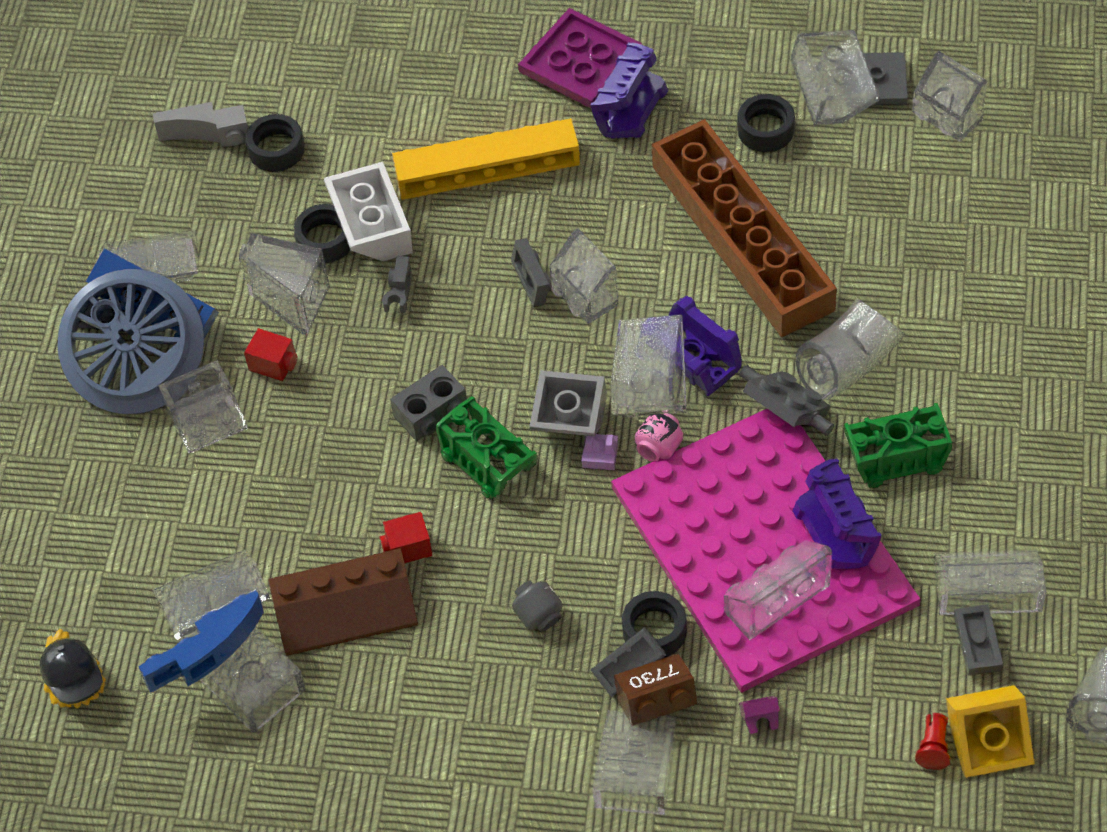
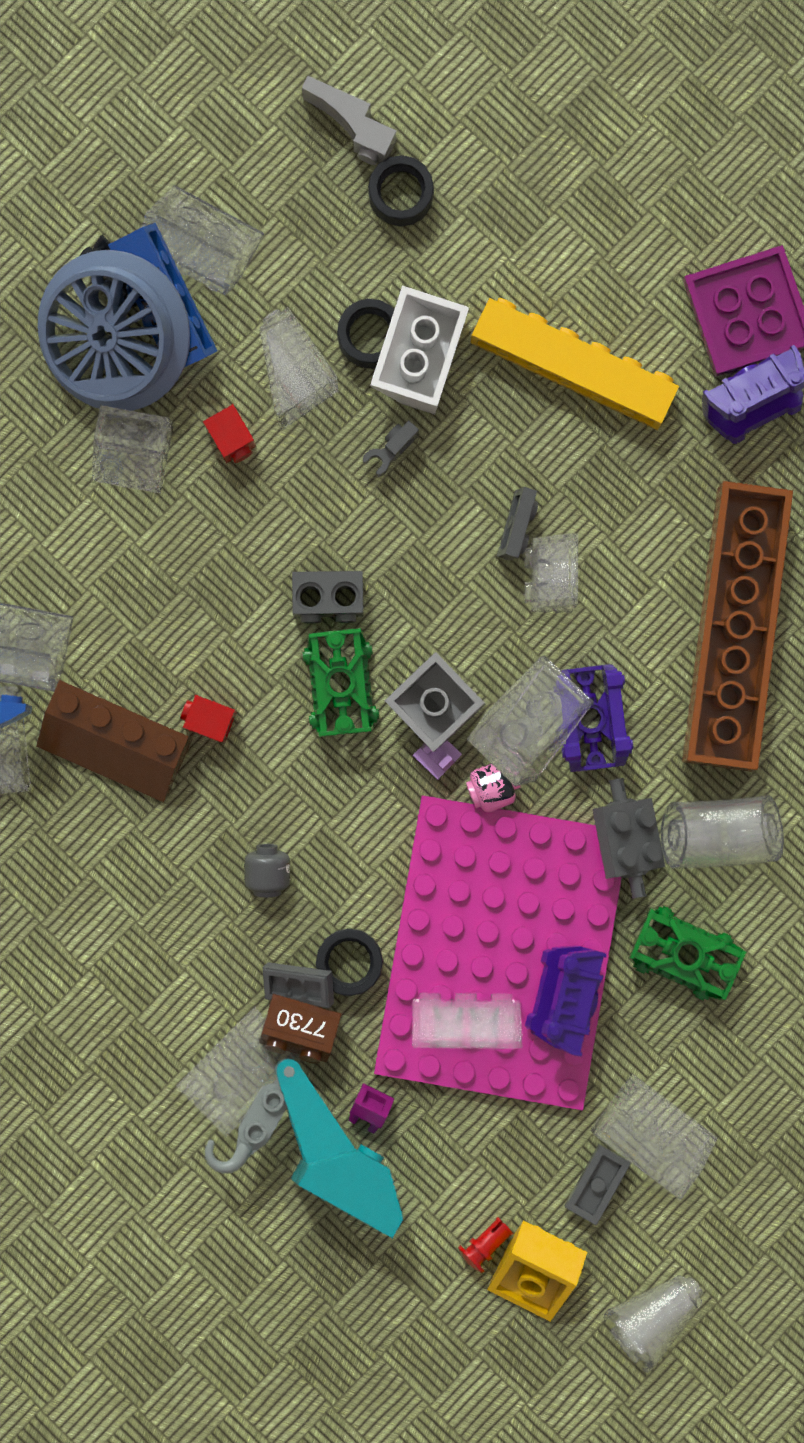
camera: 30 degrees right, 30 degrees up
(776, 761) = (329, 1161): none -> teal slope

